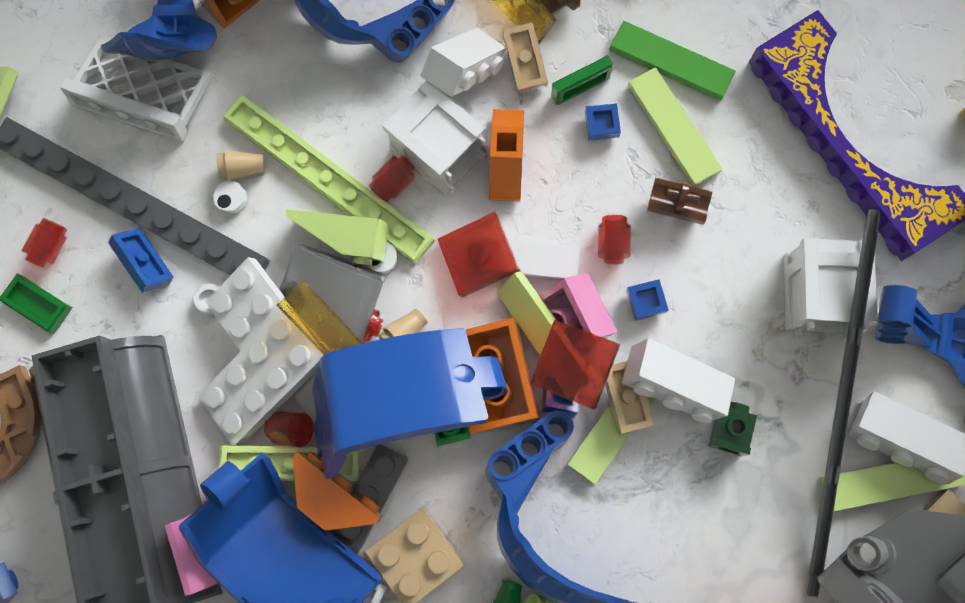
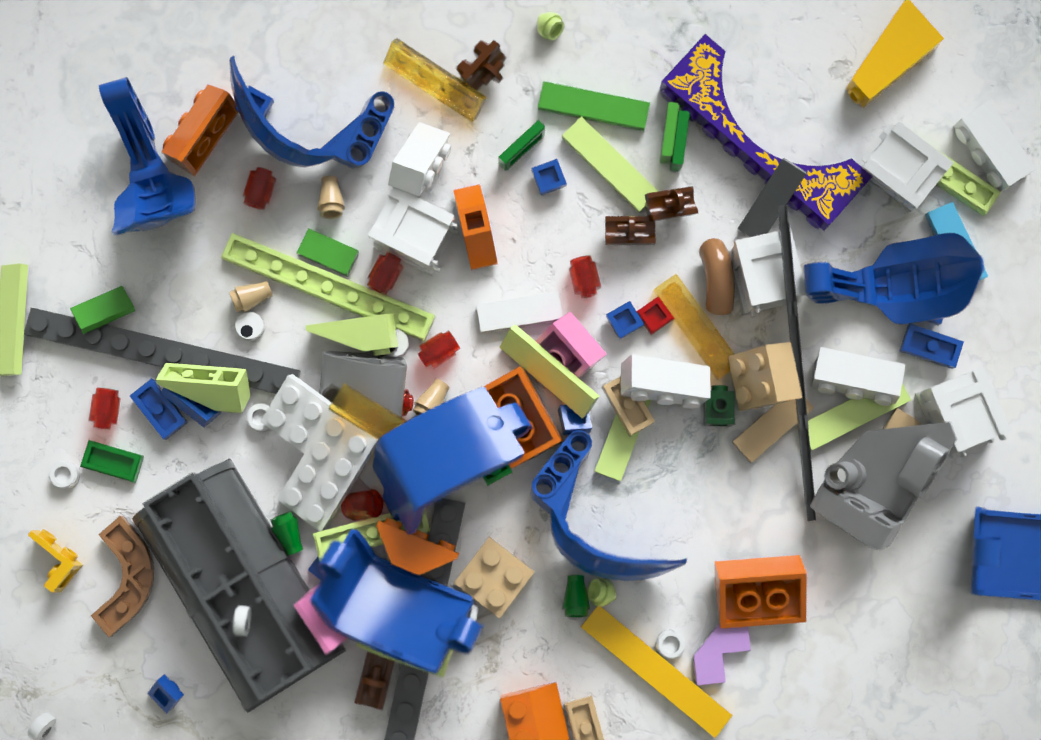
camera: 20 degrees left, 5 degrees up
(77, 137) = (102, 309): none -> bright green tile
(99, 527) = (242, 621): none -> white tile
(101, 262) = (158, 409): none -> blue plate
(123, 106) = (132, 272): white fence -> none
(163, 249) = (208, 385): none -> yellowish green slope
(196, 434) = (287, 532): none -> green cone
(284, 55) = (259, 188): none -> clear red brick
(338, 141) = (327, 252): none -> bright green tile
(357, 86) = (330, 198): none -> tan cone
(427, 276) = (438, 349): none -> clear red brick
(478, 254) = (476, 319): clear red tile -> none
(525, 57) = (468, 137): tan plate -> none
(575, 364) = (579, 390): clear red tile -> none
(683, 304) = (655, 315): none -> red tile
(728, 330) = (695, 325): none -> clear yellow plate
(733, 182) = (670, 204): none -> reddish brown hips
(750, 107) = (669, 132): none -> bright green tile
(759, 119) = (680, 141): none -> green tile
(770, 279) = (718, 277): none -> medium nougat cylinder
(787, 469) = (768, 429): none -> tan tile
(800, 407) = (765, 376): none -> tan brick
(852, 208) = (775, 193): none -> dark grey tile

